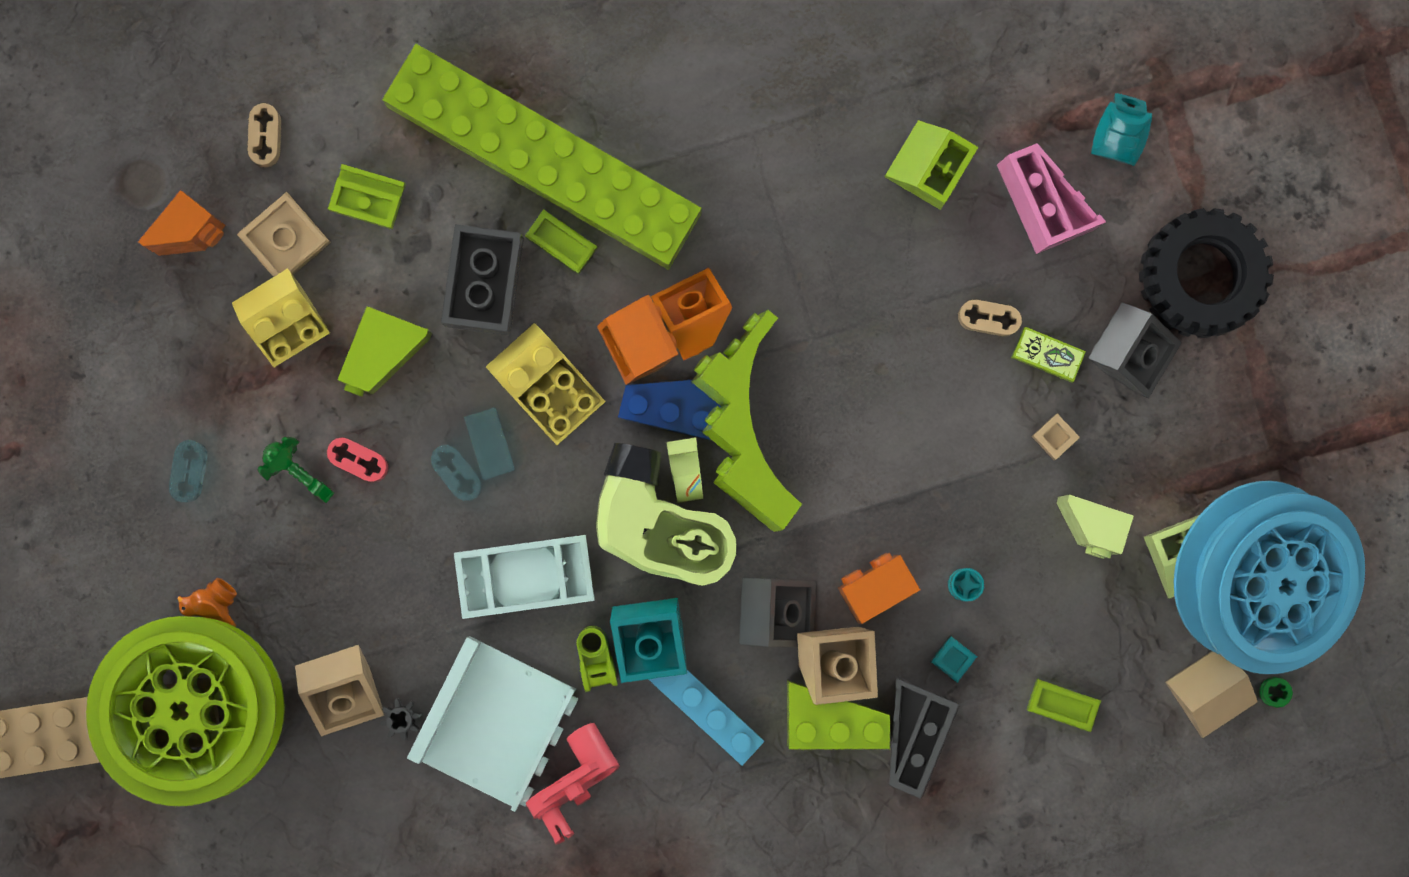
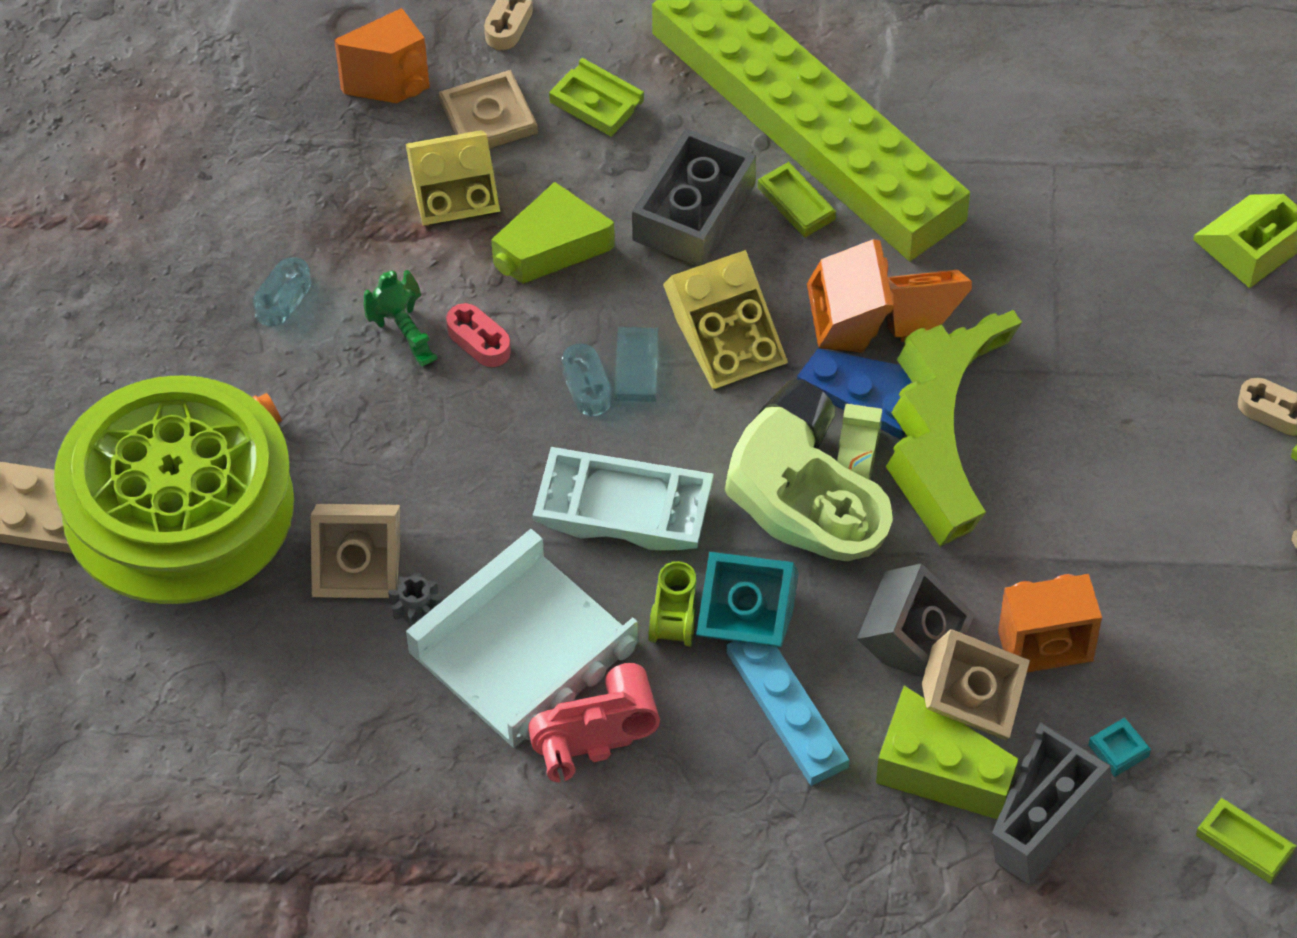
camera: 25 degrees right, 30 degrees down
(970, 583) = (1160, 663): teal wheel -> none

